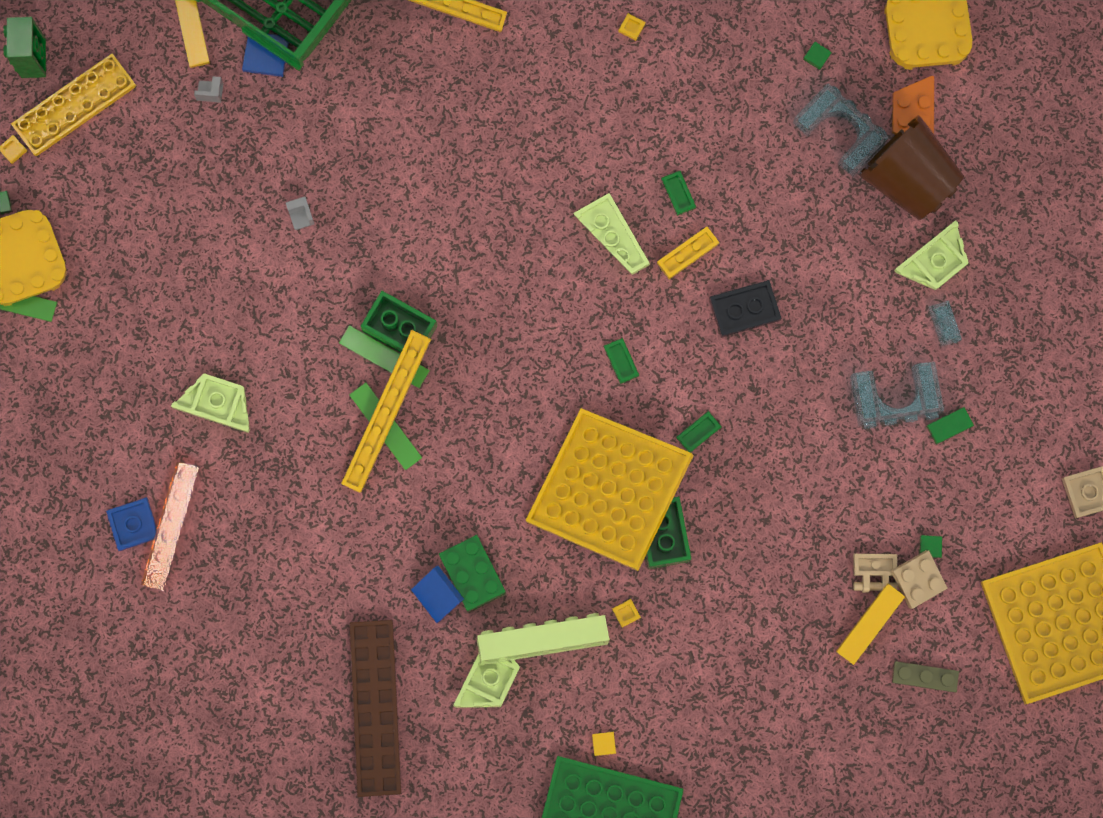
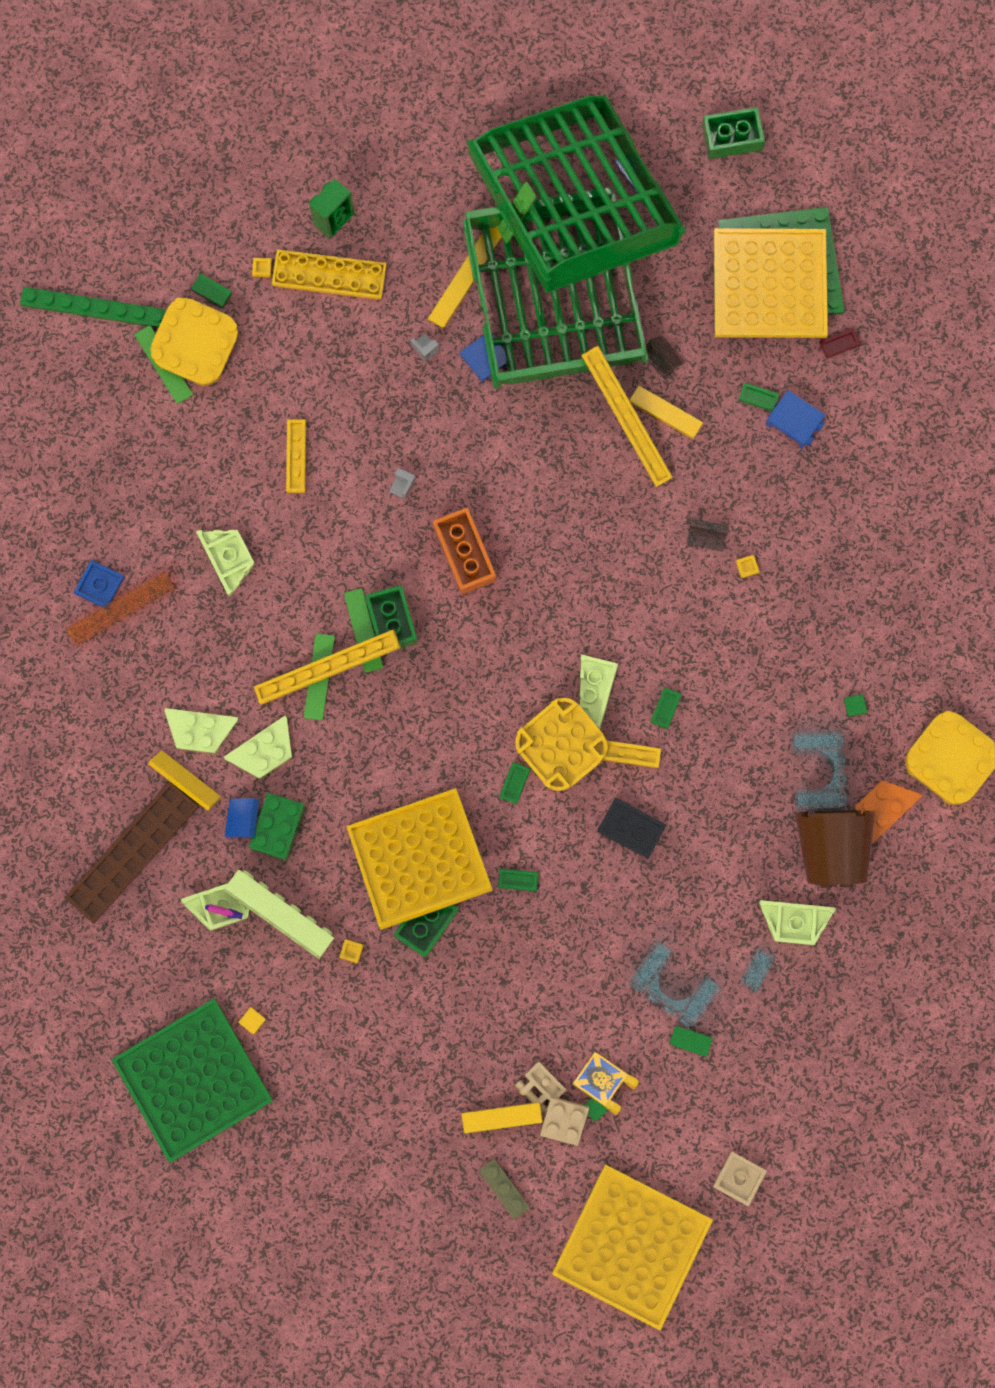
camera: 50 degrees right, 0 degrees up
(192, 272) = (296, 456): none -> yellow tile
(331, 560) = (199, 730): none -> yellowish green wing
(360, 610) = (184, 780): none -> yellow tile
(400, 525) = (264, 751): none -> yellowish green wing
(403, 218) = (464, 551): none -> orange brick
(502, 677) = (224, 911): none -> dark pink piece
(577, 31) = (707, 535): none -> clear smoke panel
(629, 294) = (562, 744): none -> yellow plate
(915, 521) = (601, 1081): none -> flag

